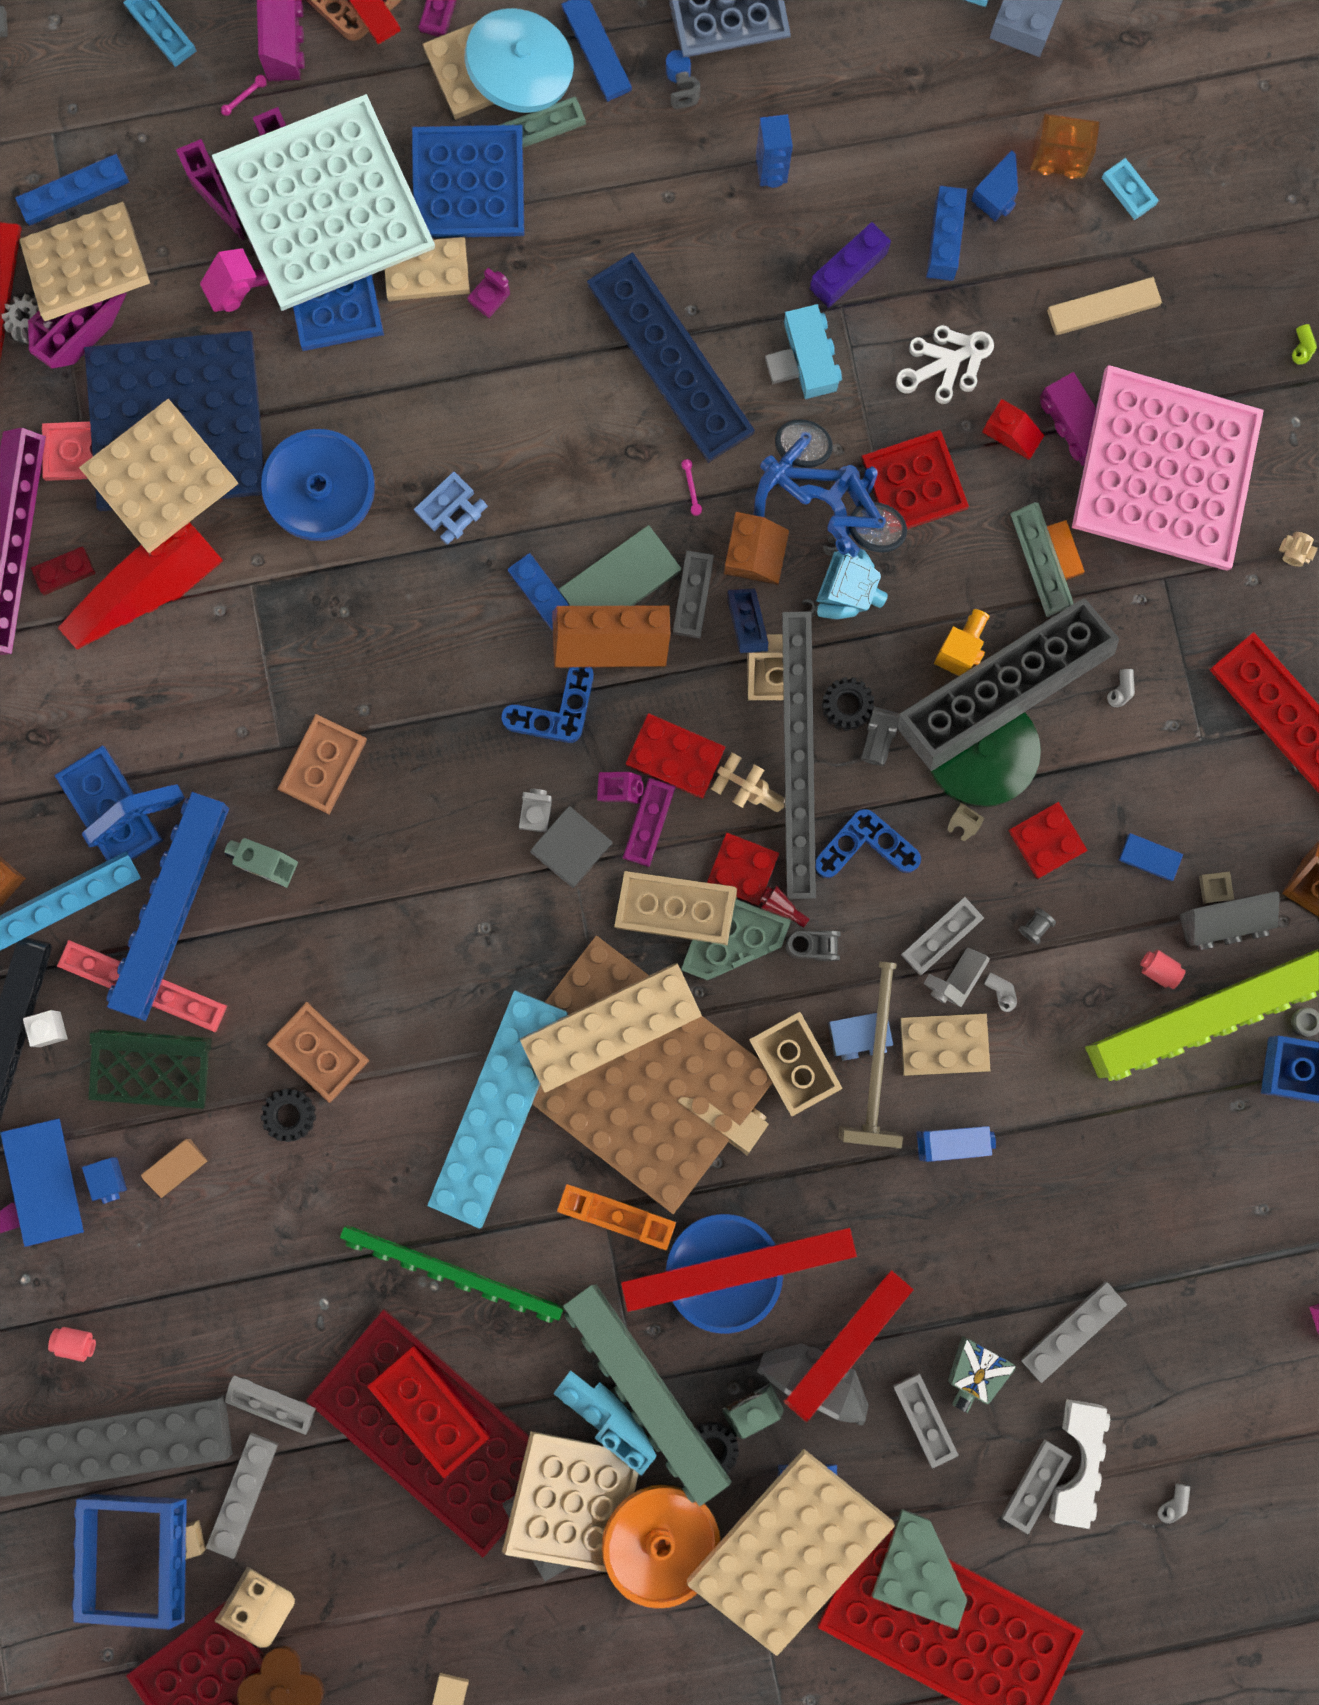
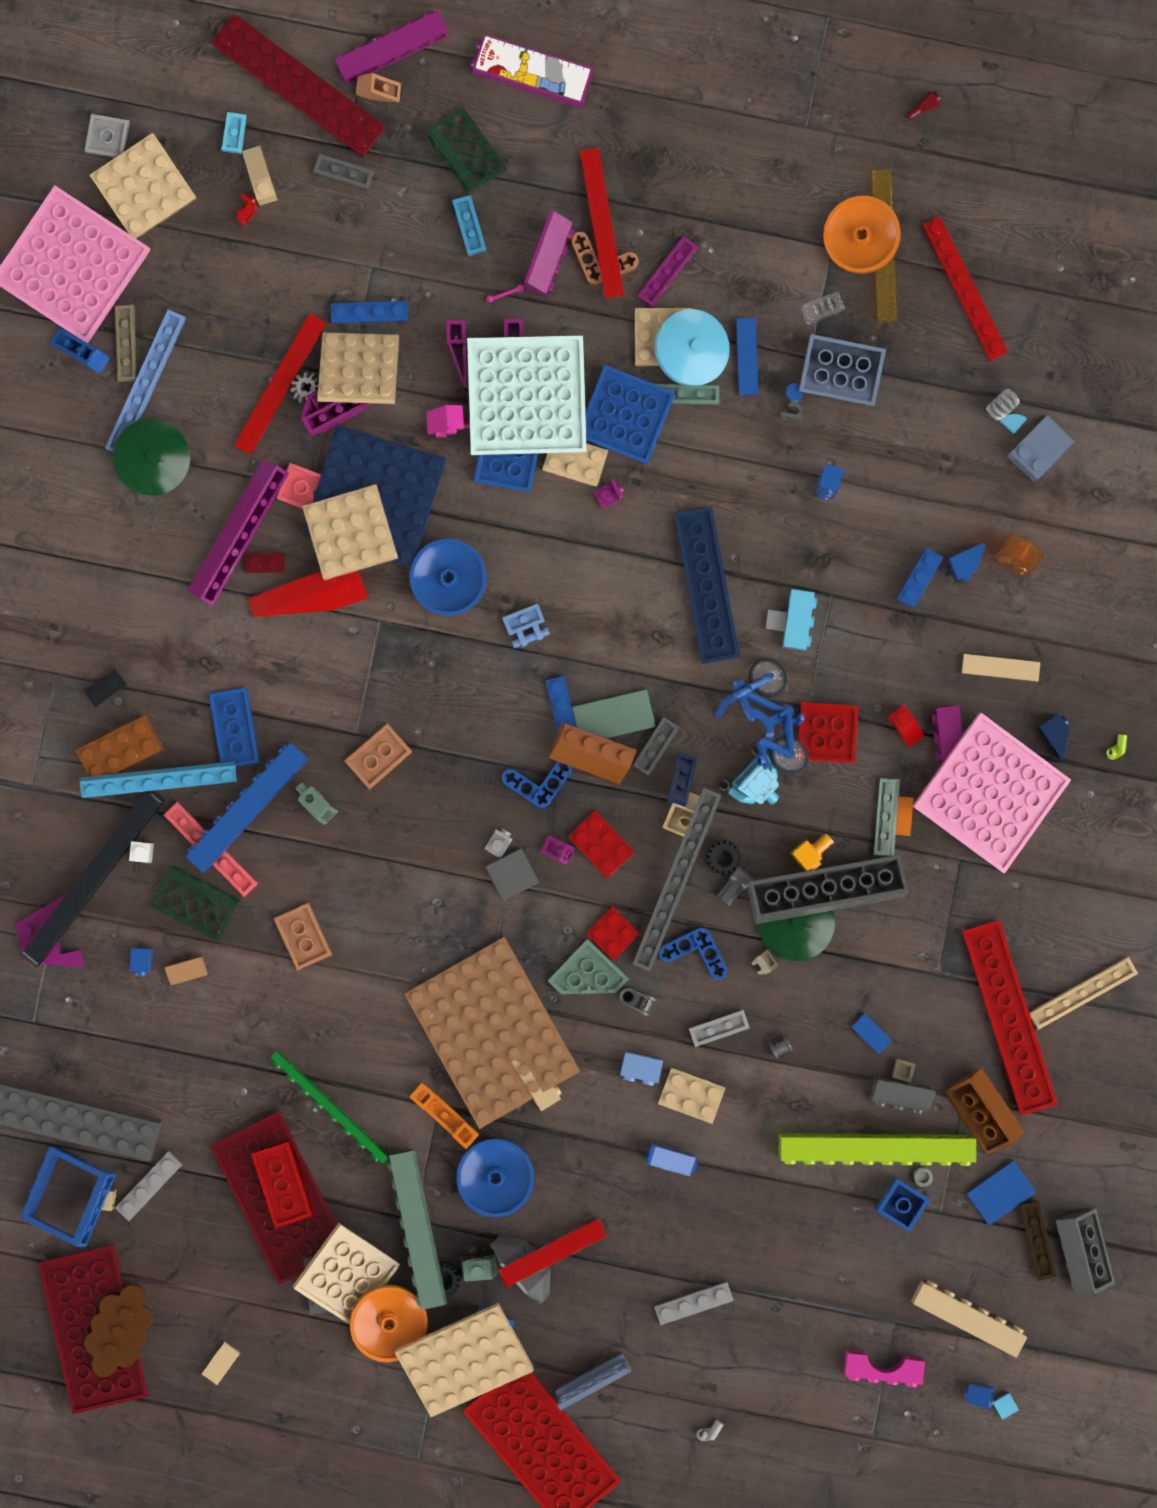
camera: 25 degrees right, 5 degrees up
(42, 1182) = (102, 945): blue tile -> none
(72, 1343) = (82, 1051): coral brick -> none
(127, 809) = (249, 739): blue beam -> none
(256, 1608) = (131, 1256): tan hips -> none
(270, 1115) = (280, 968): black tyre -> none
(270, 1405) = (187, 1139): light grey plate -> none
(493, 1116) = (399, 1019): medium azure plate -> none
(610, 1027) = (488, 999): tan plate -> none
(610, 1416) = (391, 1238): medium azure slope -> none
(649, 822) = (567, 879): magenta tile -> none
(676, 907) = (560, 941): tan plate -> none
(696, 509) = (688, 659): dark pink hinge -> none
(738, 1269) = (505, 1179): red tile -> none
(752, 789) = (639, 887): tan axle -> none
(756, 549) = (708, 734): dark orange slope -> none
(777, 903) = (624, 964): dark red cone -> none
(795, 1064) = (593, 1069): tan slope -> none
(850, 264) = (847, 573): dark purple brick -> none
(870, 1132) = (620, 1131): dark tan tile -> none
(919, 1573) = (537, 1405): sand green plate -> none
(925, 1420) = (580, 1317): light grey plate -> none
(947, 360) = (885, 662): white plant -> none
(961, 979) = (718, 1060): light grey bracket -> none
(977, 1374) = (624, 1303): torso -> none
(982, 1505) = (592, 1381): none -> sand blue fence
(1004, 990) = (743, 1078): light grey arm -> none
(1036, 1486) = (630, 1385): light grey plate -> none
(1047, 840) = (811, 996): red plate -> none
(1074, 1501) = (649, 1402): white arch -> none
(1124, 691) = (901, 922): light grey arm -> none
(1130, 189) = (1051, 597): medium azure plate -> none
(1162, 969) = (846, 1106): coral brick -> none
(1217, 360) = (1056, 734): none -> dark blue slope
(1298, 549) = (1052, 878): tan gear -> none

